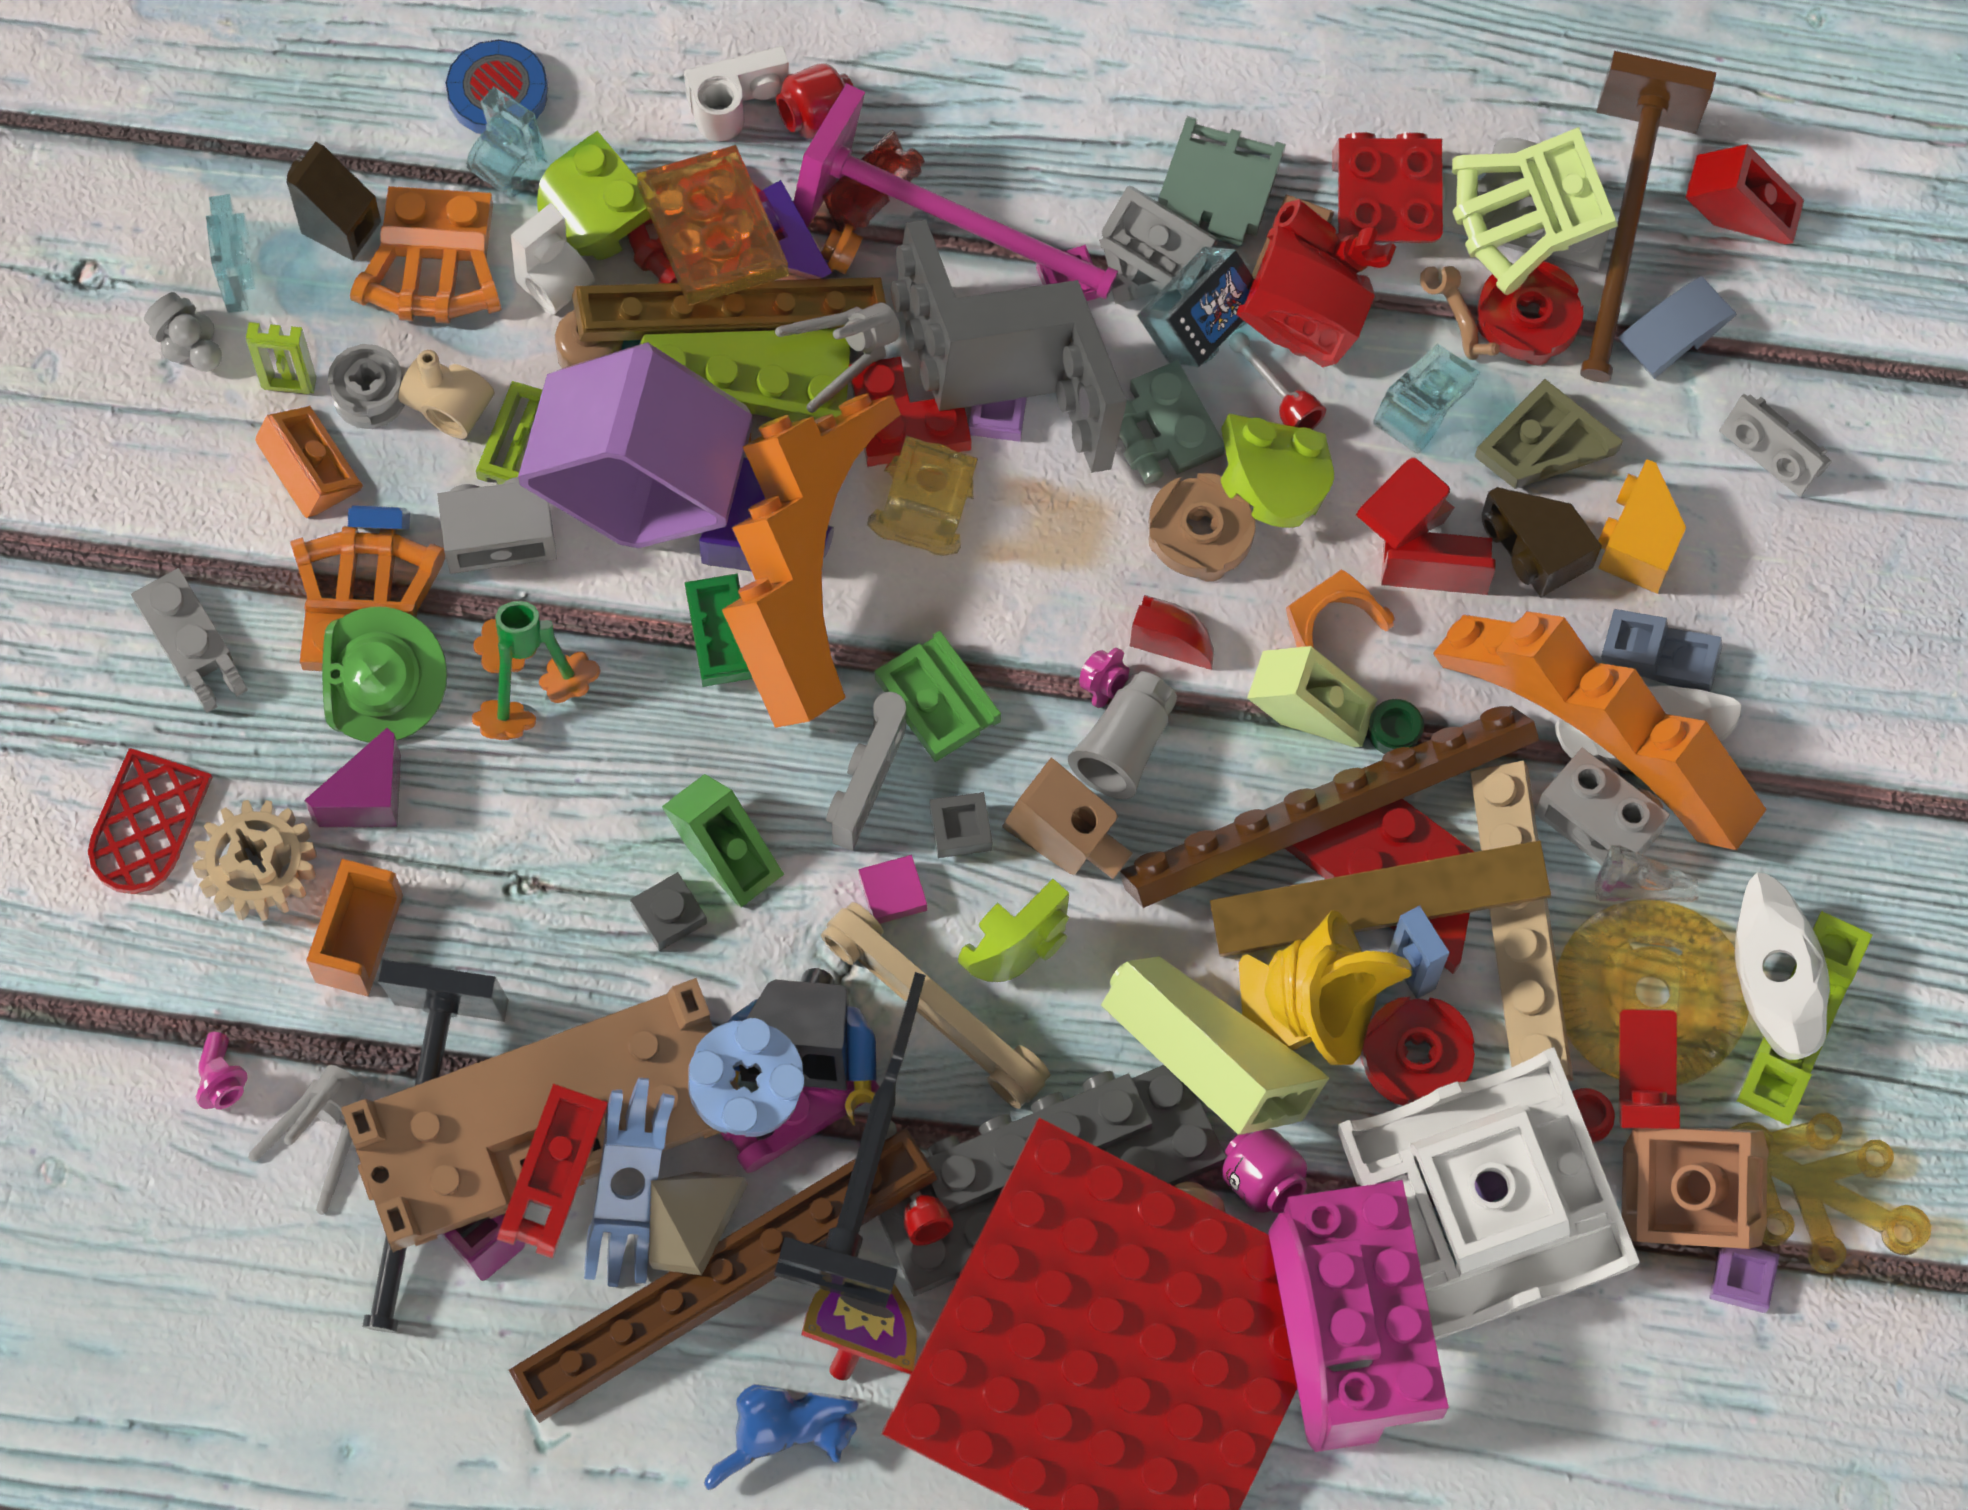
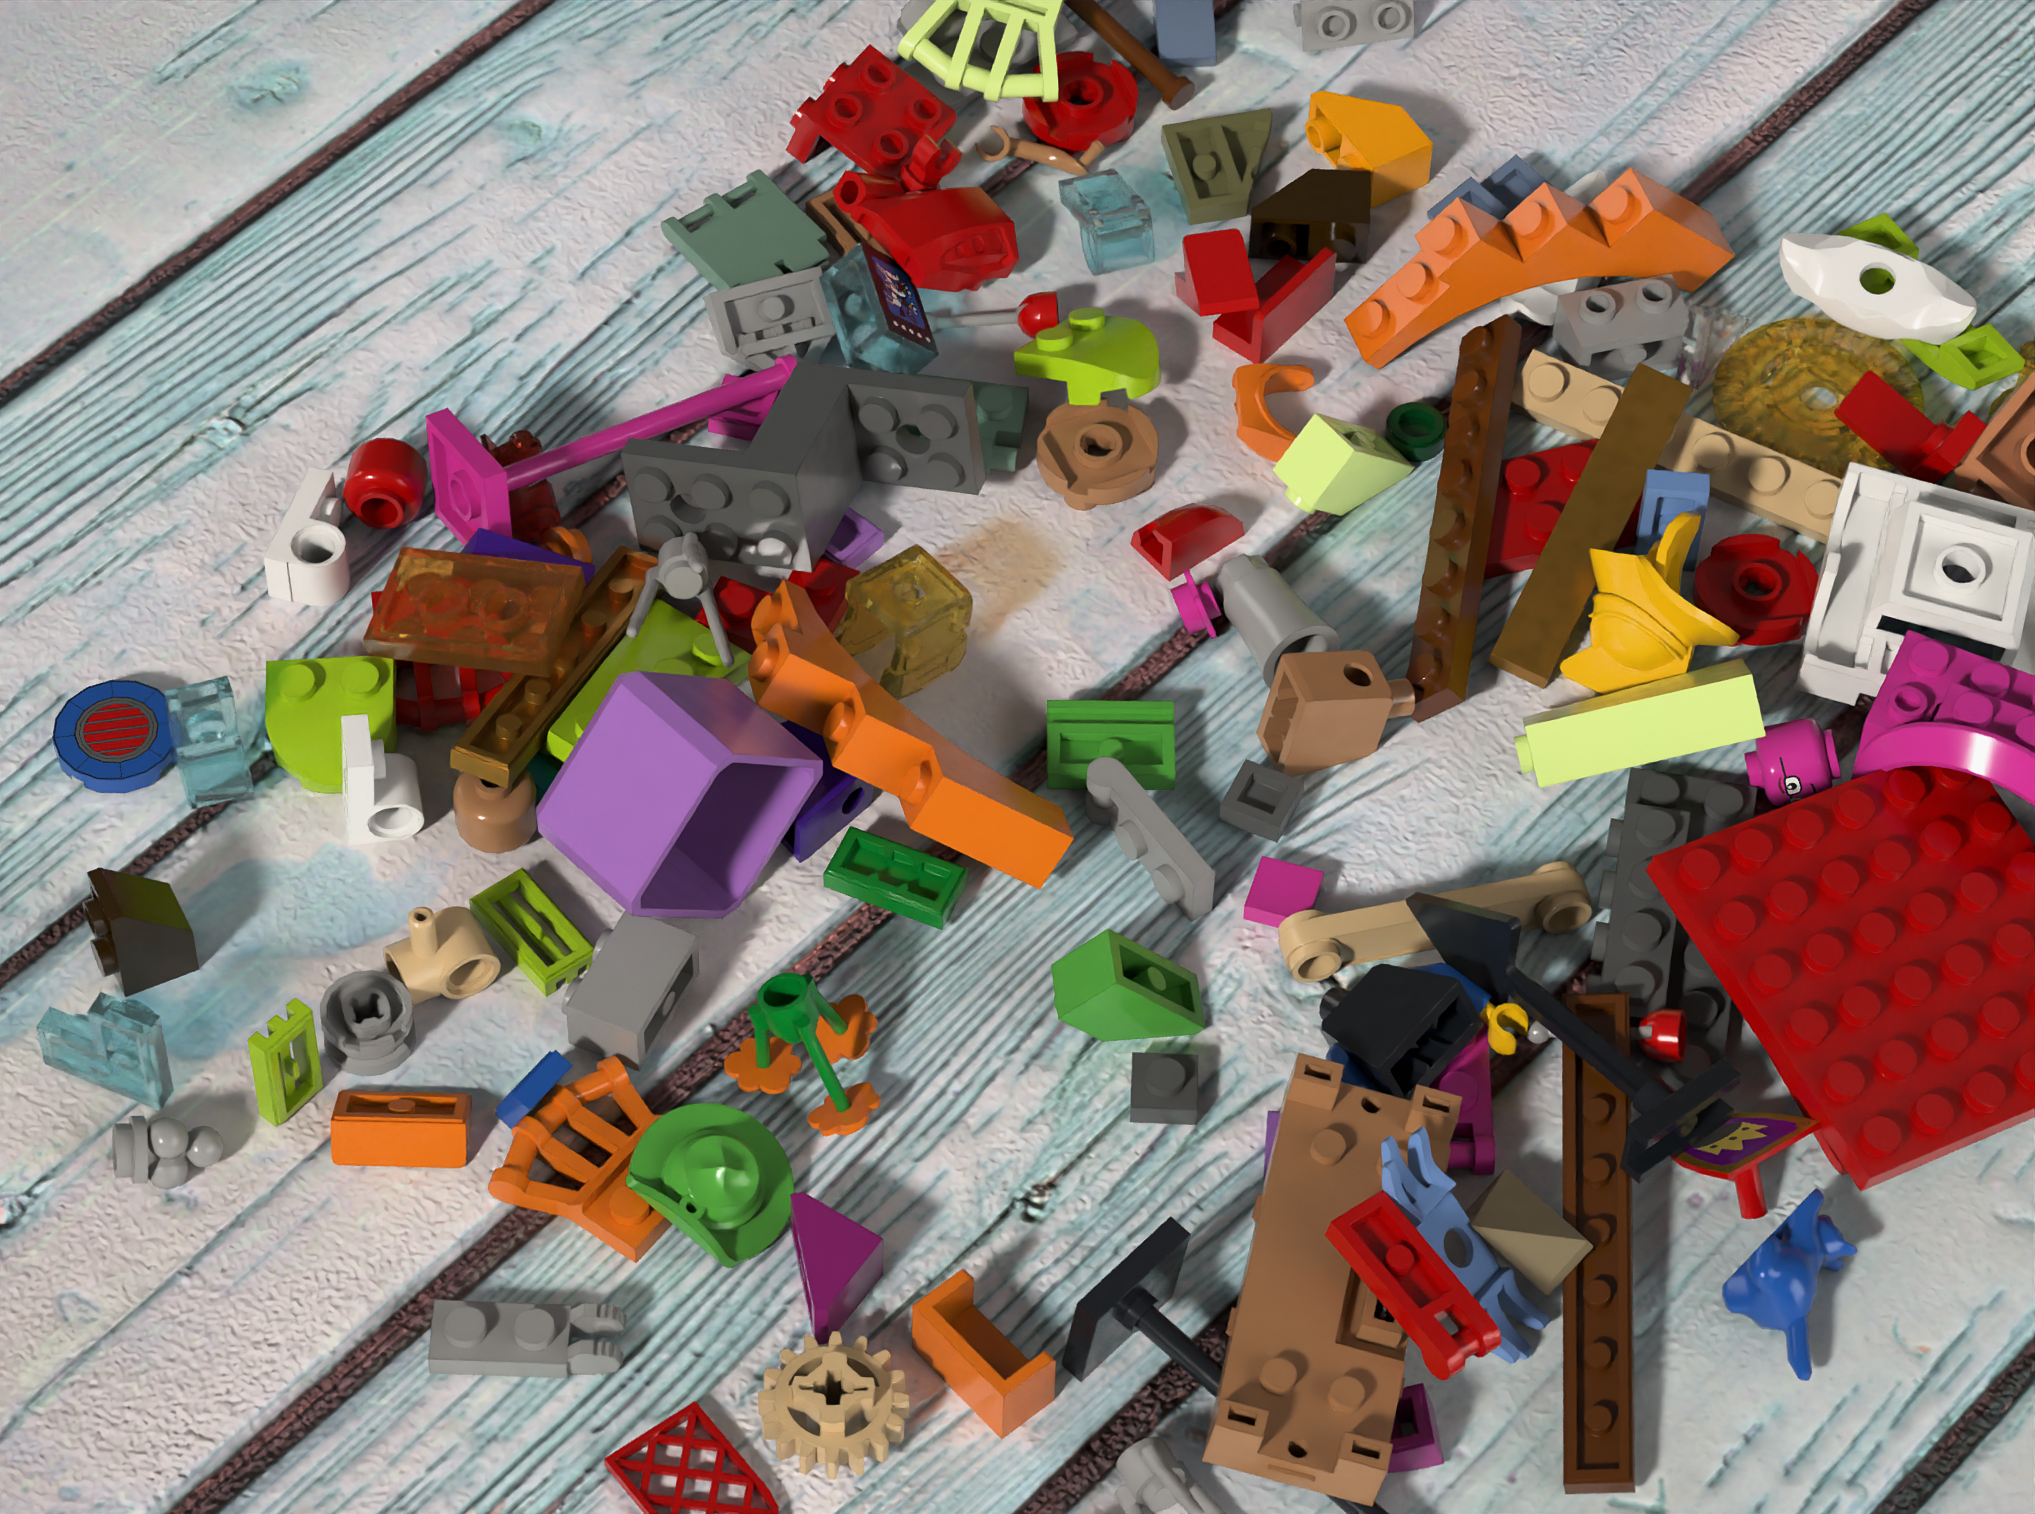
camera: 55 degrees left, 15 degrees down
(431, 226) = (238, 865): orange plate -> none
(740, 1111) = (1443, 1039): light blue plate -> none
(1018, 941) = (1426, 798): lime slope -> none

